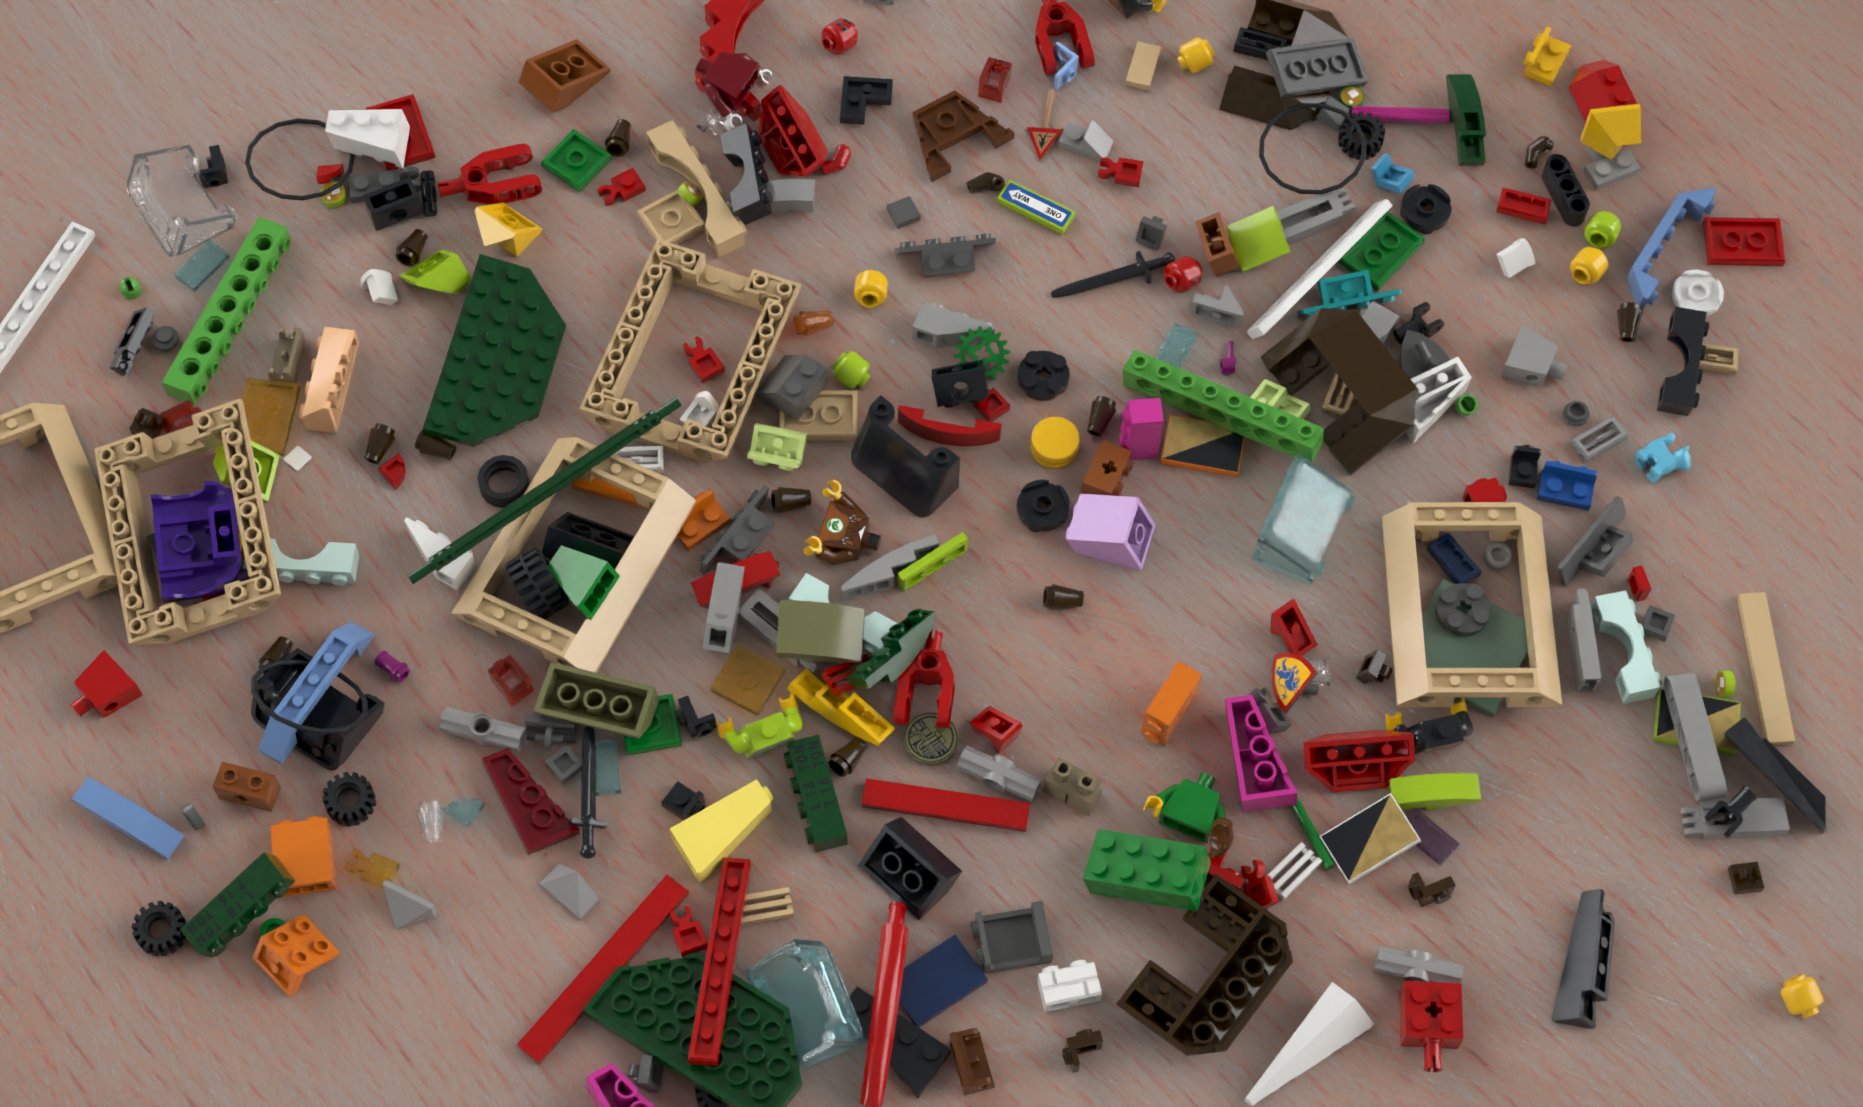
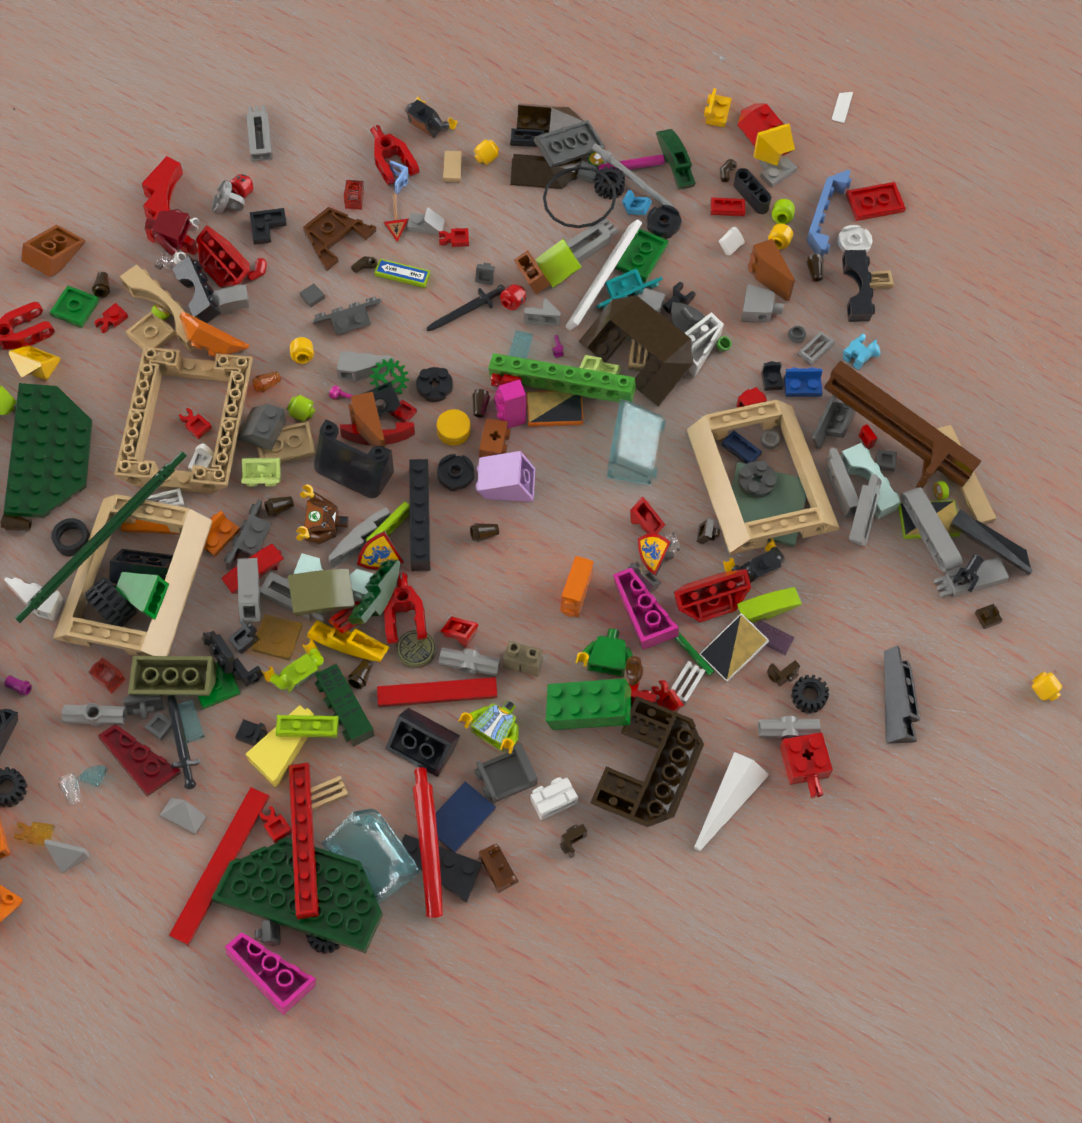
camera: 15 degrees left, 0 degrees up
(667, 681) = (220, 651): none -> black hinge
(703, 670) = (244, 637): none -> black bracket
(749, 245) = (209, 338): none -> orange wedge
(759, 810) = (307, 726): none -> lime tile
(816, 51) = (226, 199): none -> light grey tile
(904, 356) = (335, 391): none -> dark pink hand
(910, 592) = (377, 551): none -> shield
(935, 403) = (365, 416): none -> dark orange slope
(979, 555) = (419, 515): none -> black brick
(1012, 867) = (494, 725): none -> torso
(1144, 391) = (498, 380): none -> red plate
(1367, 98) = (608, 157): none -> light grey bar
(1466, 912) = (818, 686): none -> black tyre
(1561, 311) = (771, 269): none -> dark orange slope
(1605, 690) = (865, 511): none -> light grey hinge
(1693, 580) = (903, 425): none -> reddish brown piece
(1732, 90) = (842, 107): none -> white sticker

